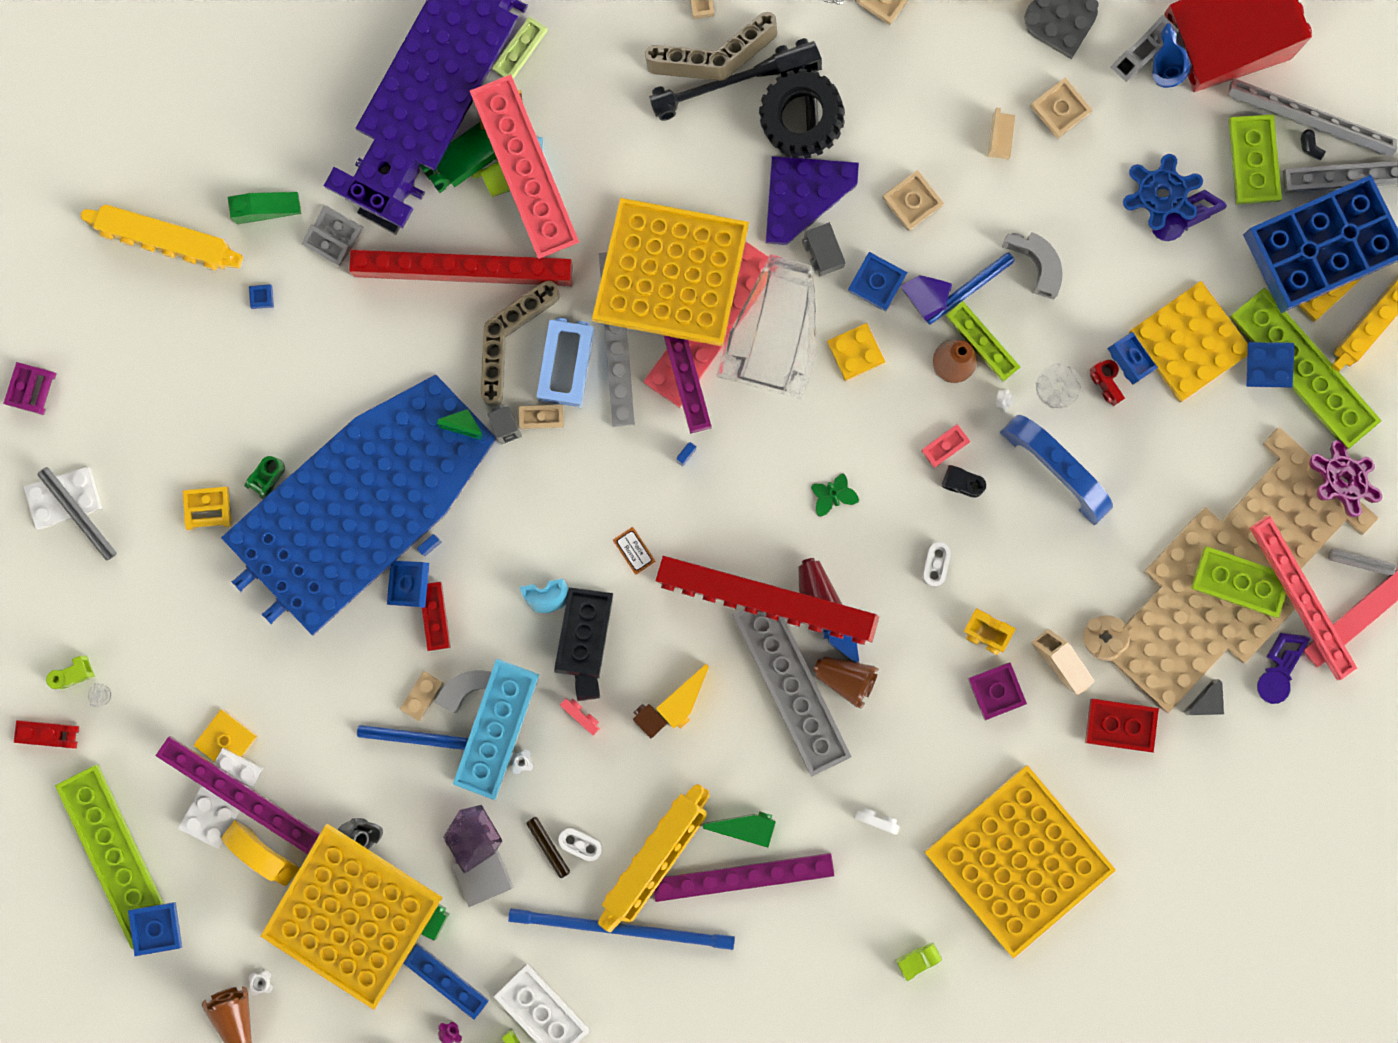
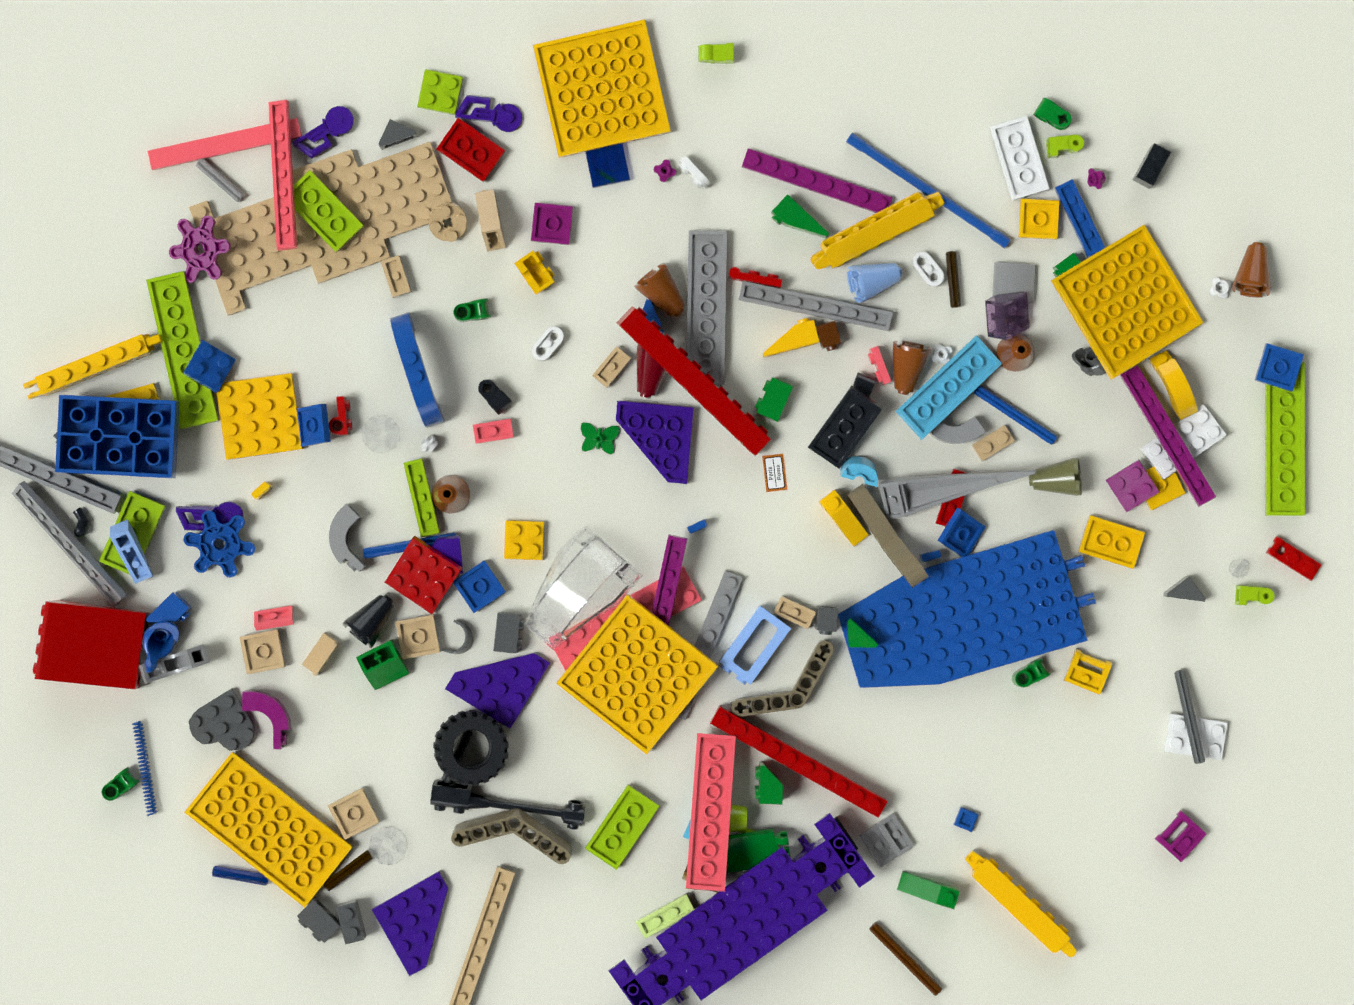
camera: 155 degrees left, 5 degrees up
(145, 643) = (1185, 589): none -> dark grey slope
(246, 654) = (1111, 542): none -> yellow plate
(252, 724) = (1132, 485): none -> magenta plate
(254, 127) = (902, 955): none -> reddish brown axle
(334, 692) = (1058, 478): none -> olive cone
(451, 798) = (1009, 356): none -> dark orange cone
(475, 601) = (913, 494): none -> light grey plate
(477, 226) = (769, 787): none -> green slope
(482, 540) = (886, 536): none -> dark tan beam
(489, 958) = (1038, 219): none -> yellow plate
(539, 539) = (843, 518): none -> yellow slope
(550, 733) = (908, 365): none -> dark orange cone
(608, 115) = (622, 827): none -> lime plate
(633, 803) = (872, 279): none -> light blue cone
(672, 624) = (774, 399): none -> green piece
(678, 745) = (815, 306): none -> light grey plate
(758, 742) = (755, 277): none -> red plate
(771, 529) = (661, 434): none -> dark purple plate
(858, 573) = (611, 367): none -> tan plate
(860, 224) = (468, 640): none -> dark grey helmet
(902, 808) = (659, 170): none -> magenta plate
(934, 154) = (382, 664): none -> green slope
(940, 264) = (423, 575): none -> red plate
(970, 191) = (370, 620): none -> black cone
(971, 782) = (607, 165): none -> clear blue tile
(1019, 56) = (271, 707): none -> magenta arch
(1031, 559) = (473, 310): none -> green piece
(1068, 146) = (273, 618): none -> coral plate
(1103, 778) = (505, 117): none -> dark purple piece
(1128, 554) = (396, 276): none -> tan plate
(1149, 267) = (261, 490): none -> yellow tile
(1175, 102) = (171, 609): none -> blue slope
(1185, 770) = (440, 92): none -> lime plate
(1250, 138) = (130, 551): none -> light blue slope

